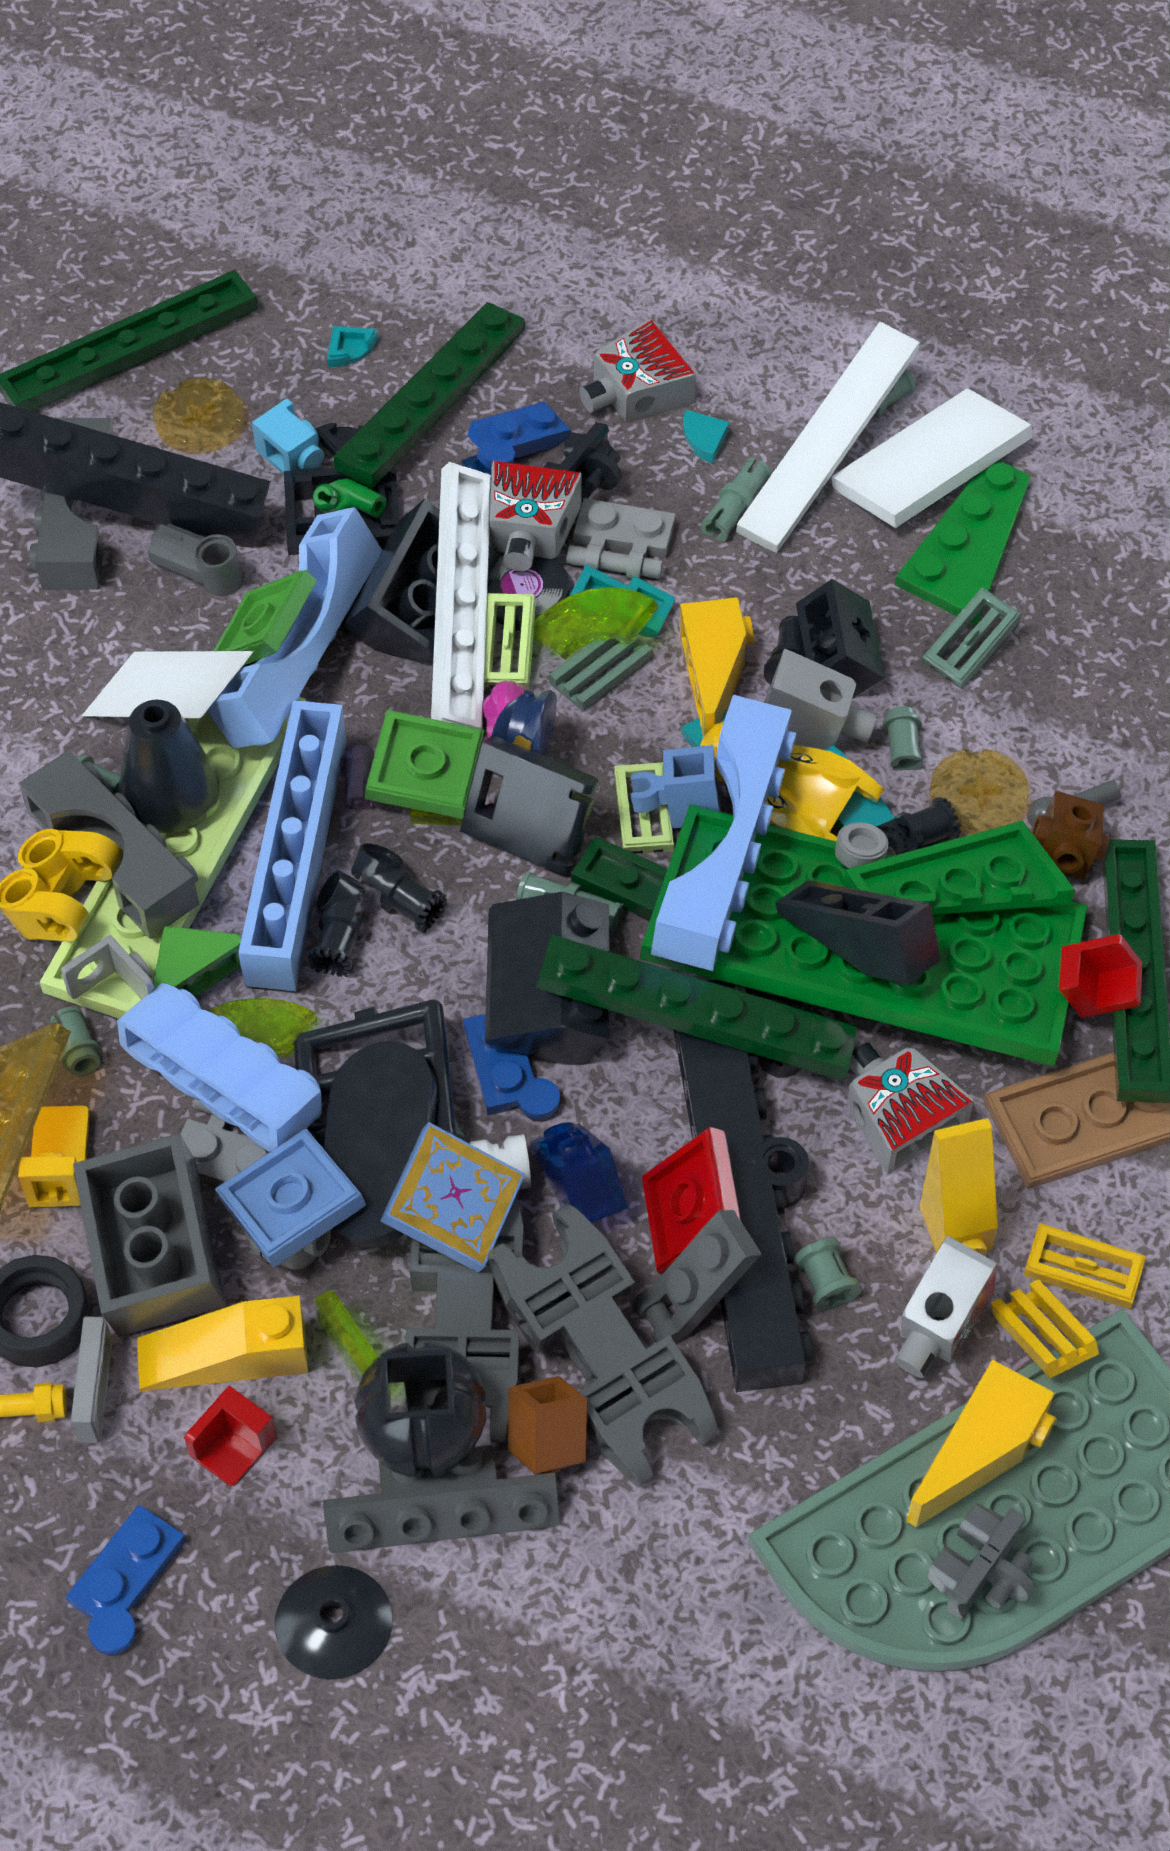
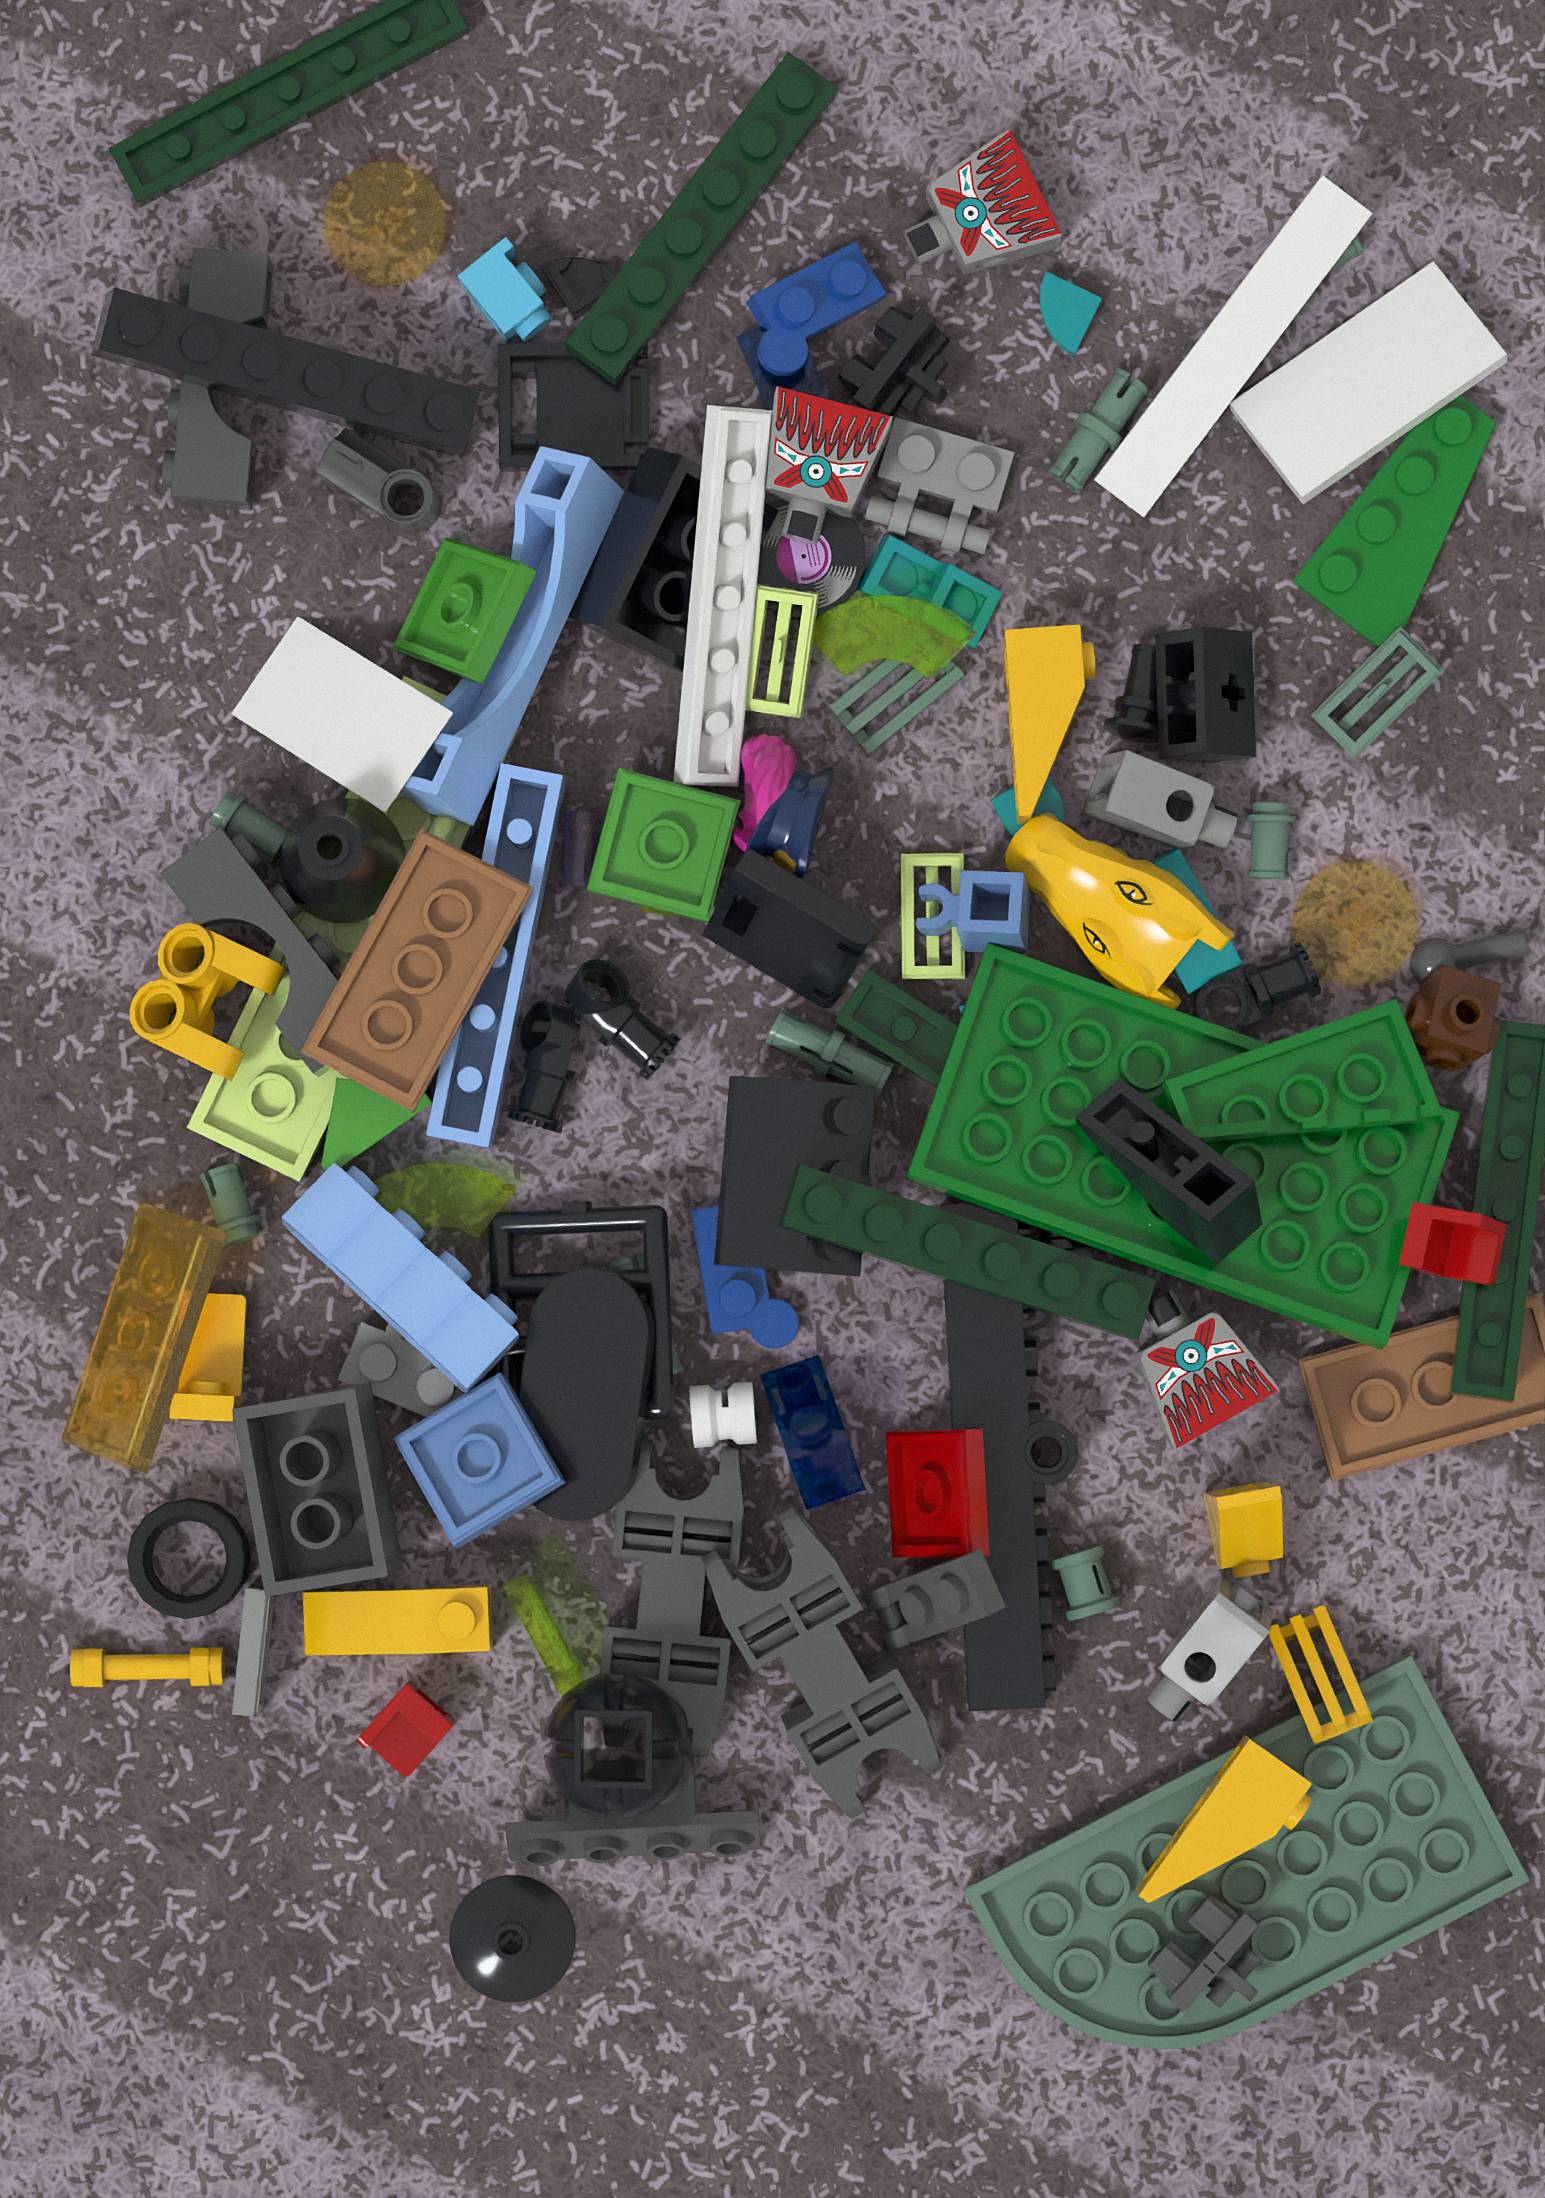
camera: 15 degrees right, 30 degrees up
(111, 959) = (296, 1132): light grey bracket -> none
(122, 1578) = (286, 1877): blue hinge -> none
(227, 833) = (417, 970): none -> medium nougat tile
(348, 494) = (581, 396): green arm -> none
(350, 343) = (594, 110): teal tile -> none
(453, 1197) = (665, 1485): tile -> none
(547, 1425) = (754, 1757): dark orange brick -> none
(698, 904) = (1066, 901): light blue arch -> none
(860, 844) = (1192, 1023): light grey tile -> none
(1079, 1283) = (1331, 1565): yellow tile -> none

